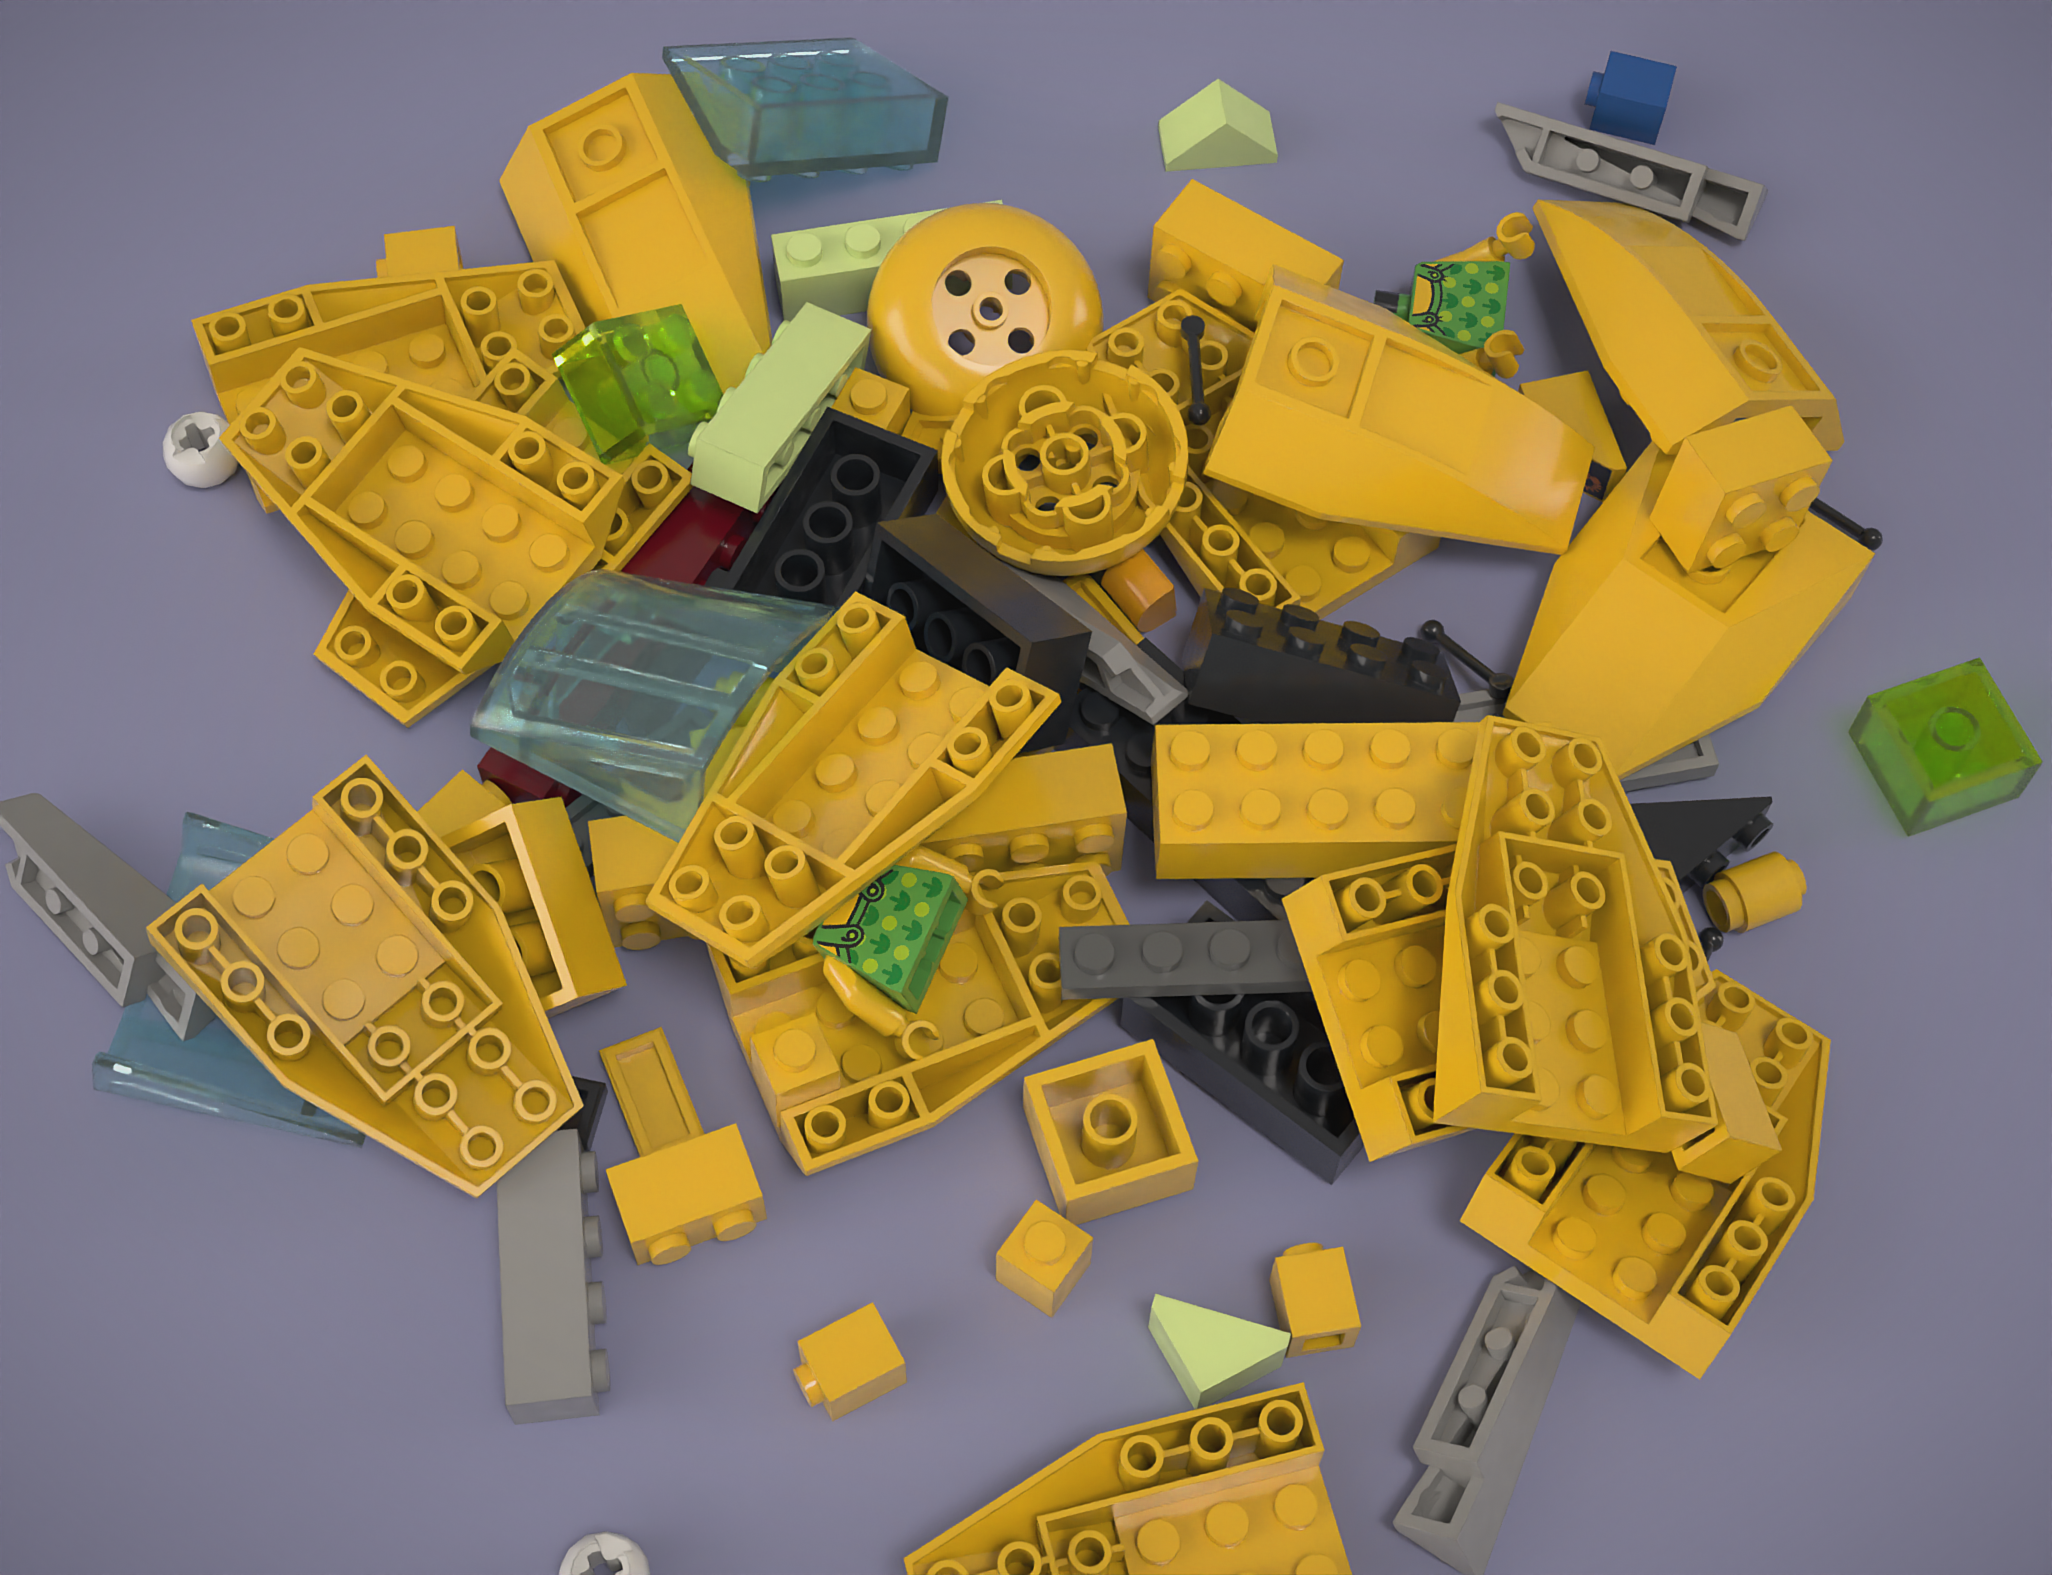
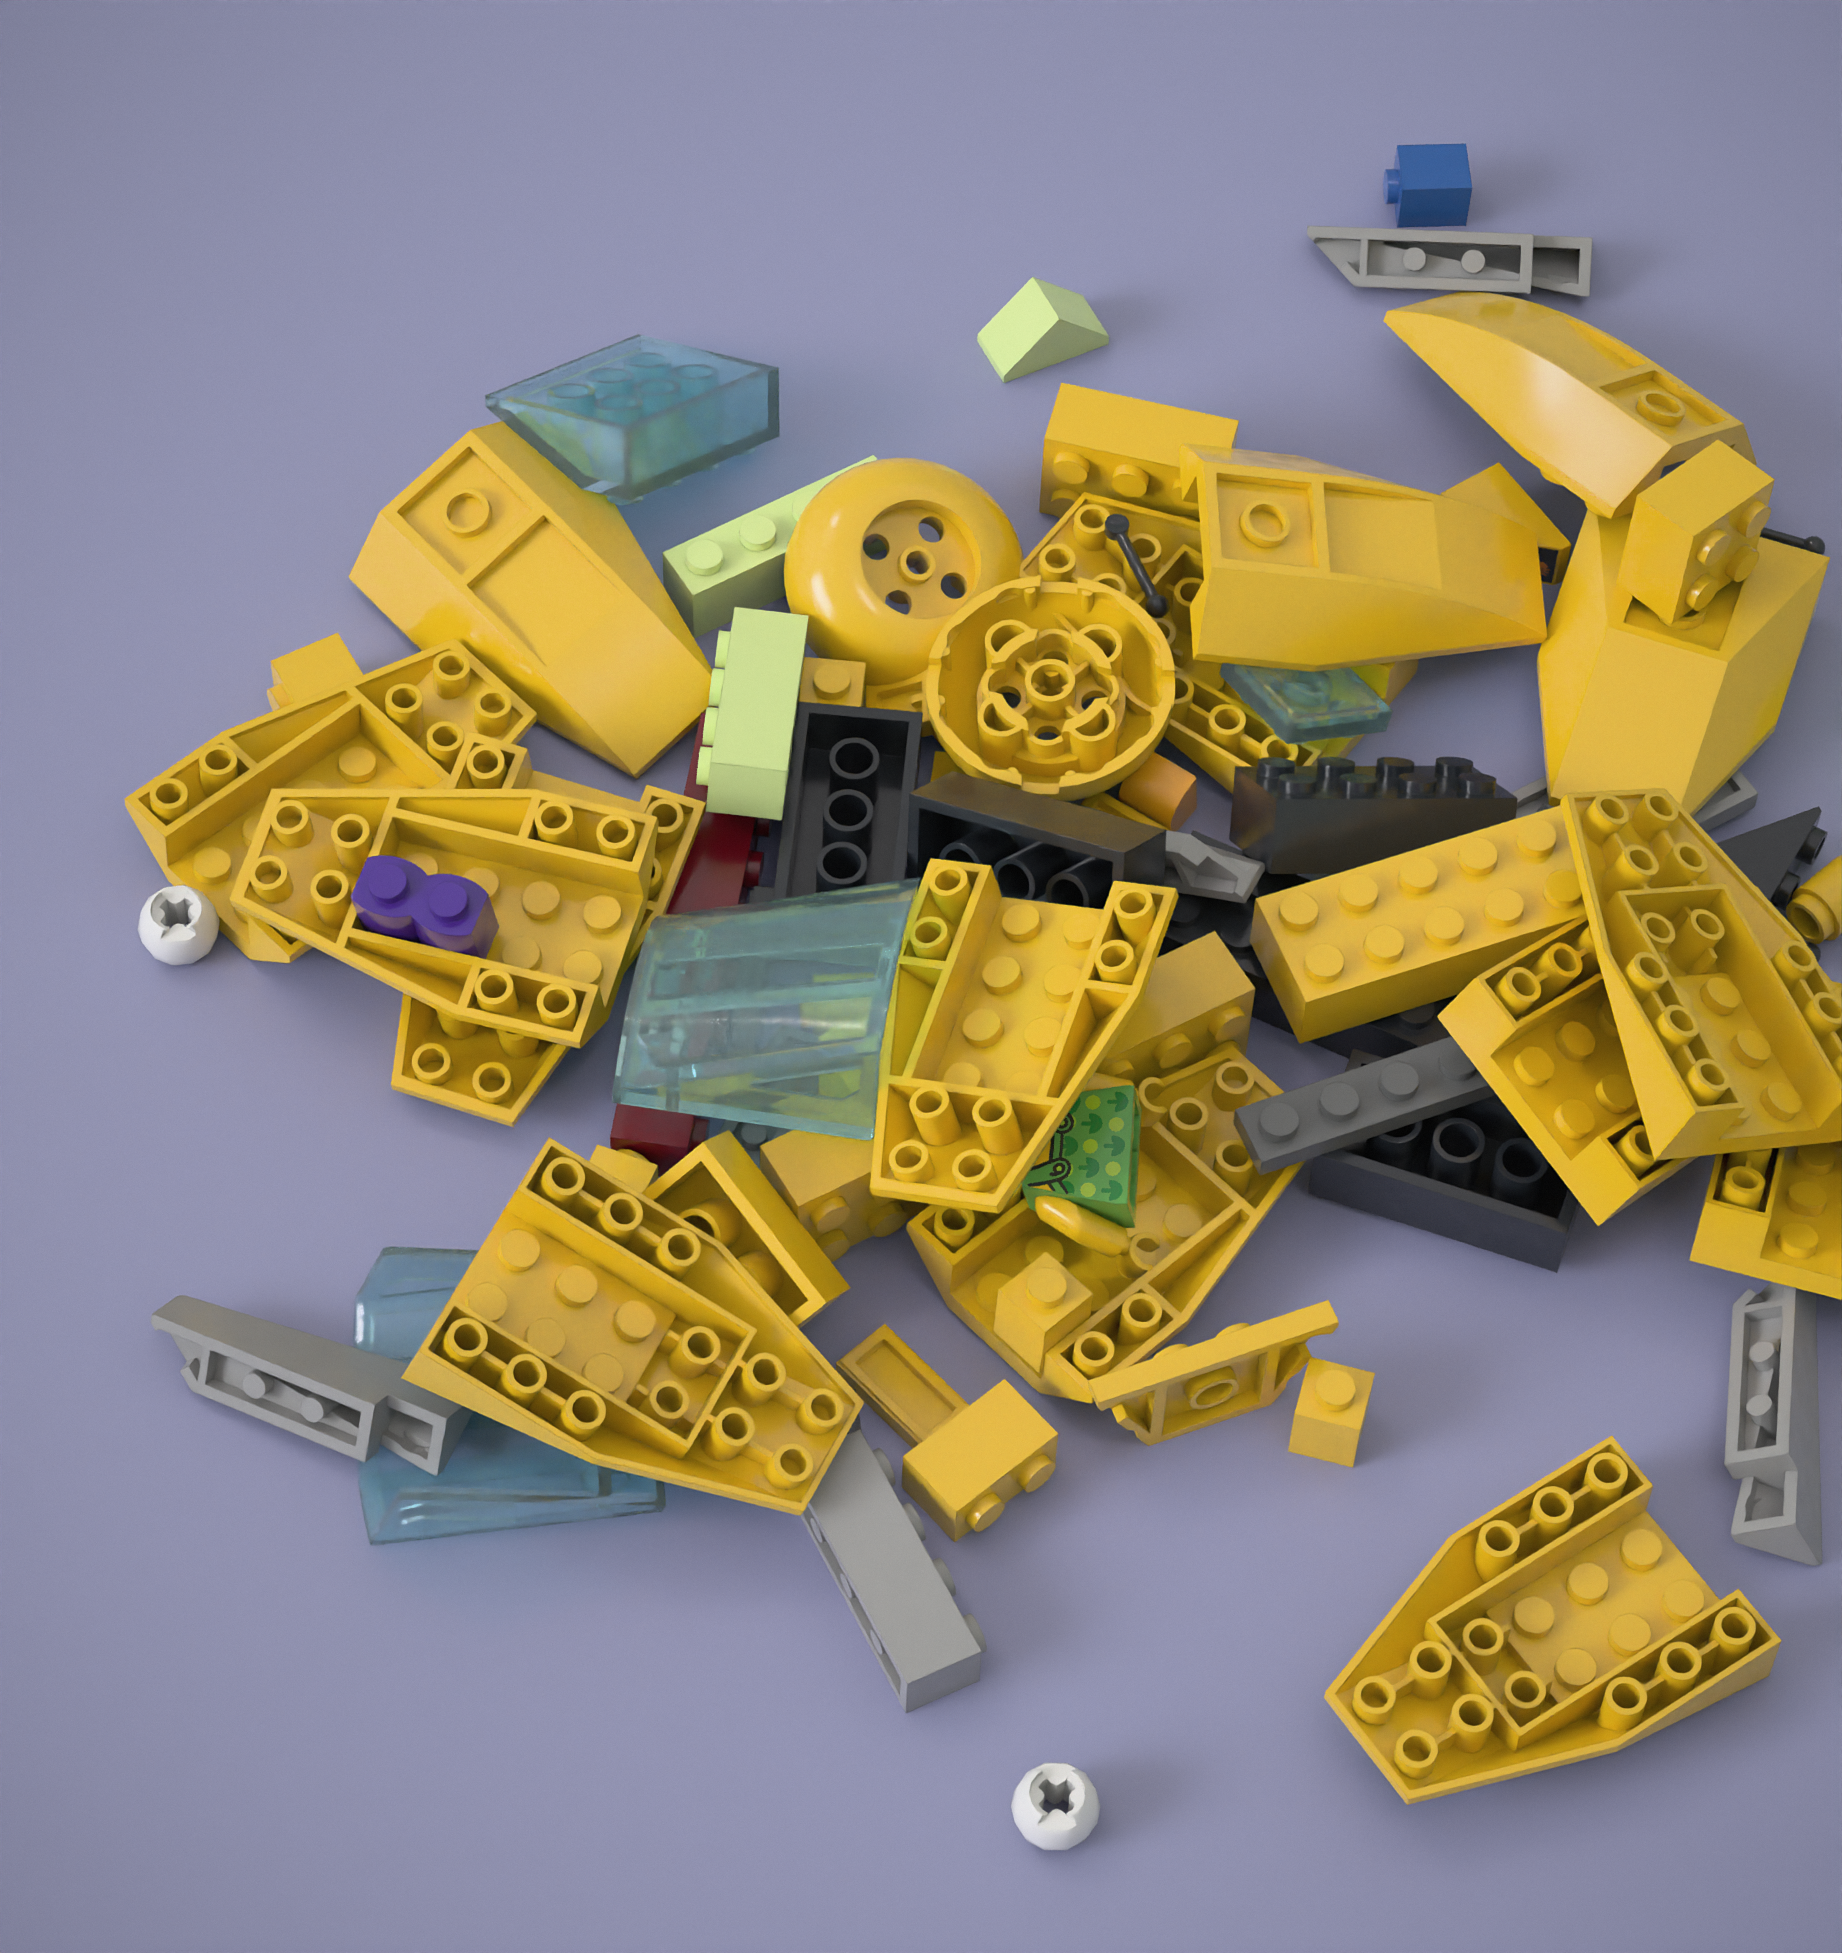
camera: 20 degrees left, 5 degrees down
(379, 499) = (431, 910): none -> dark purple brick
(639, 382) = (613, 728): clear neon green brick -> none
(849, 1363) = (1195, 1556): yellow brick -> none
(930, 1190) = (1212, 1379): none -> yellow wing
(1109, 1133) = (1357, 1263): yellow brick -> none
(1213, 1350) = (1511, 1442): yellowish green slope -> none
(1305, 549) = (1309, 704): none -> clear light blue plate
(1314, 1299) = (1585, 1373): yellow brick -> none
(1465, 298) = (1356, 425): torso -> none
(1499, 683) = (1532, 779): black hinge -> none

